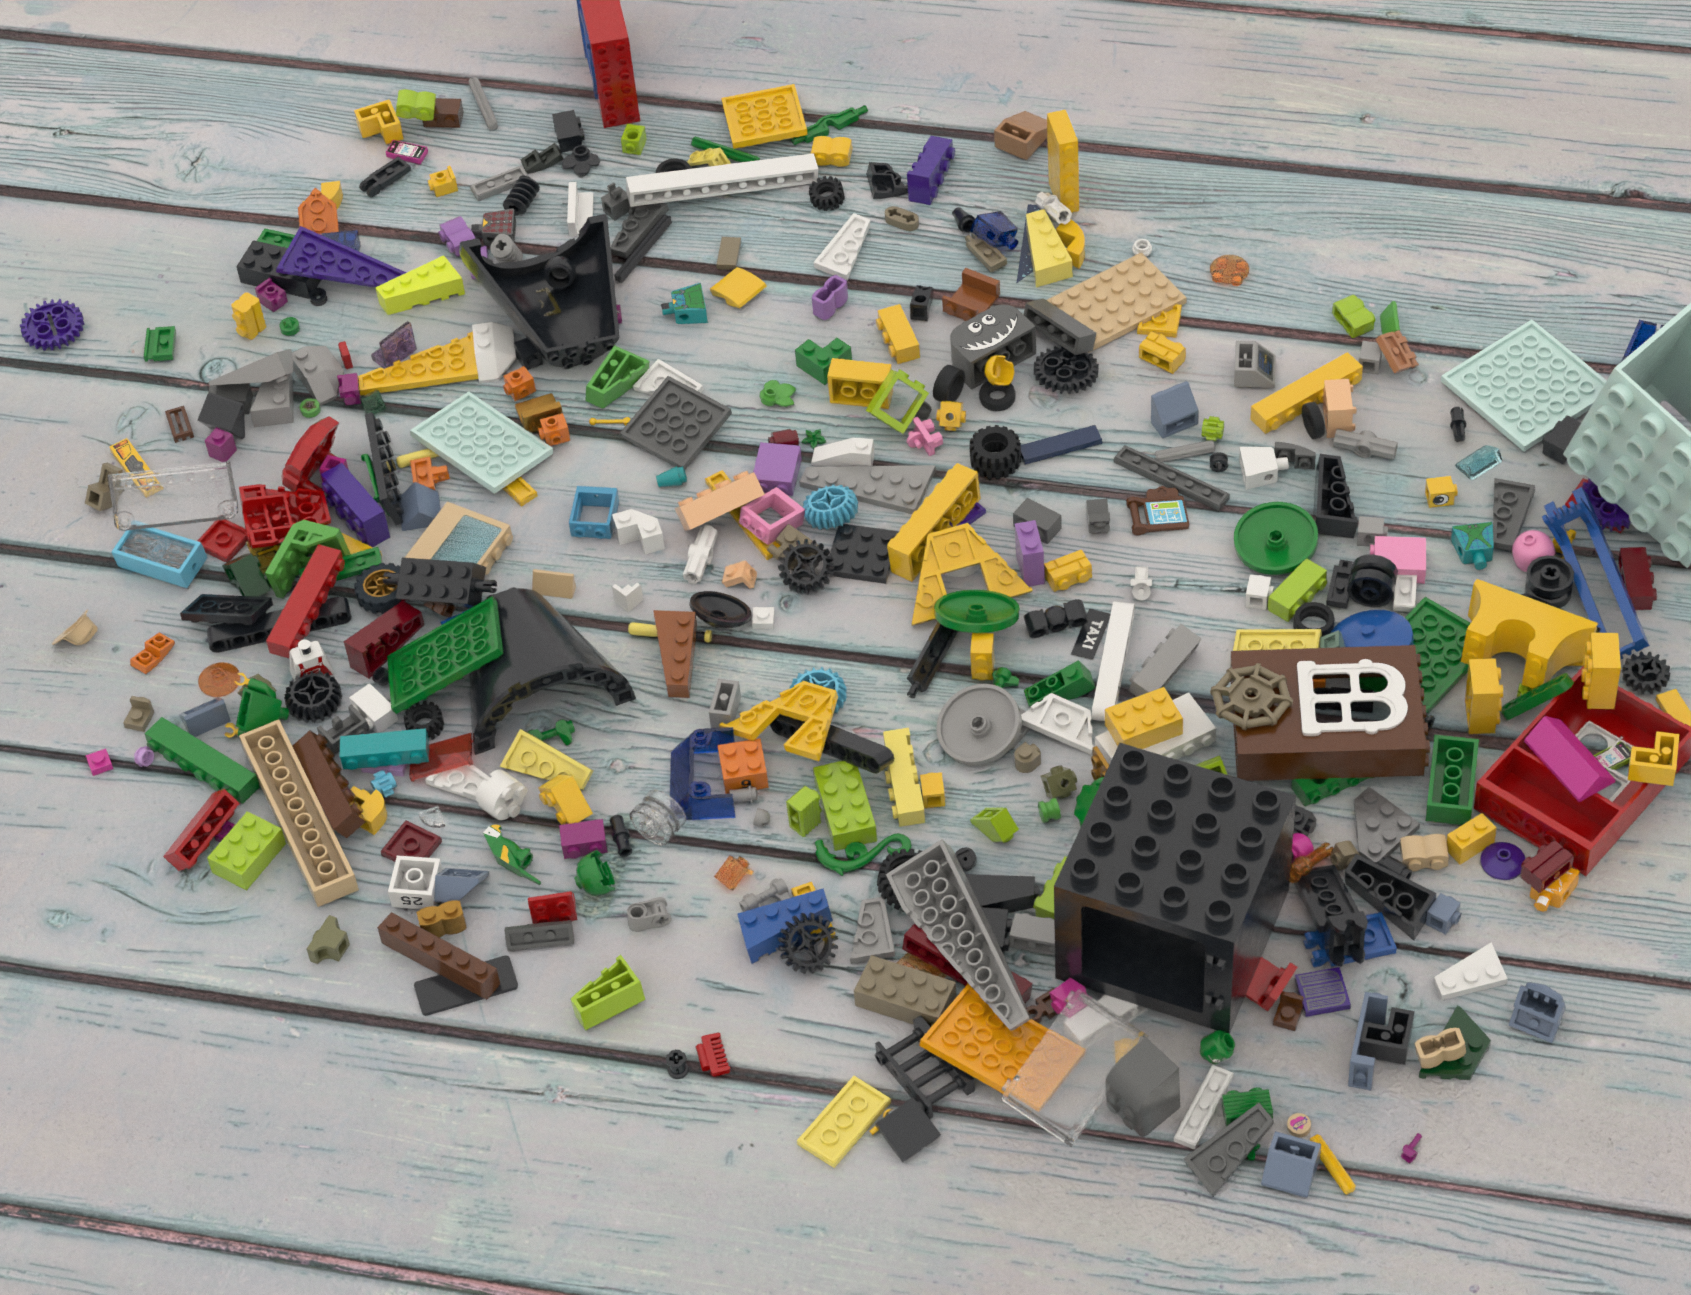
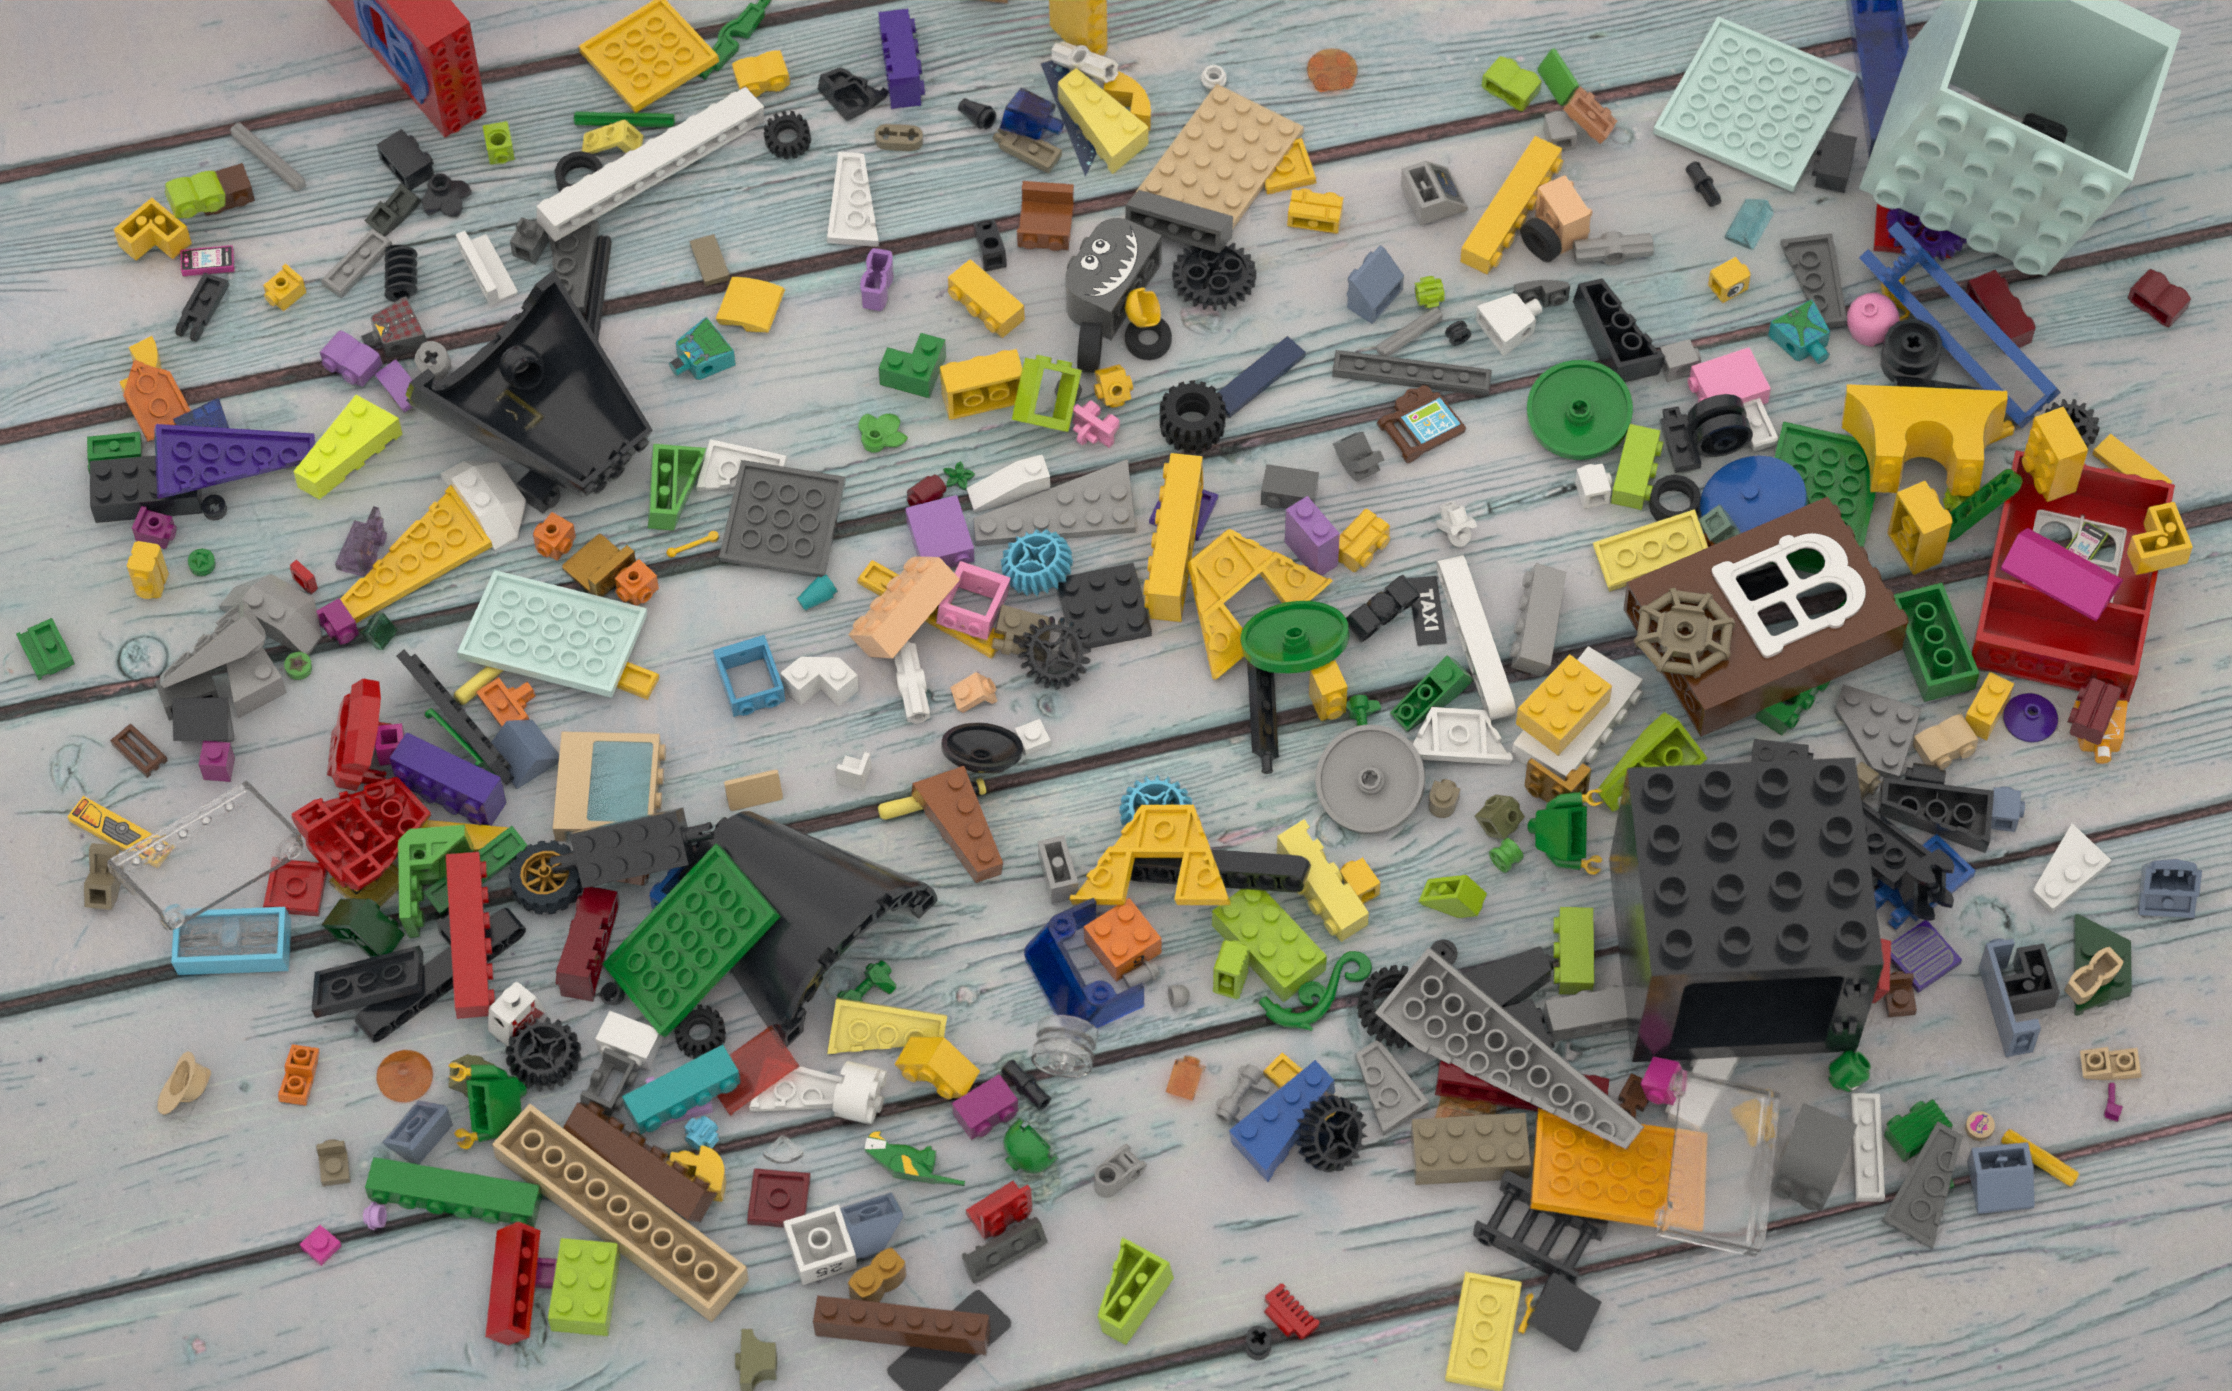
camera: 30 degrees left, 10 degrees up
(1425, 1121) = (2110, 1065): none -> tan slope

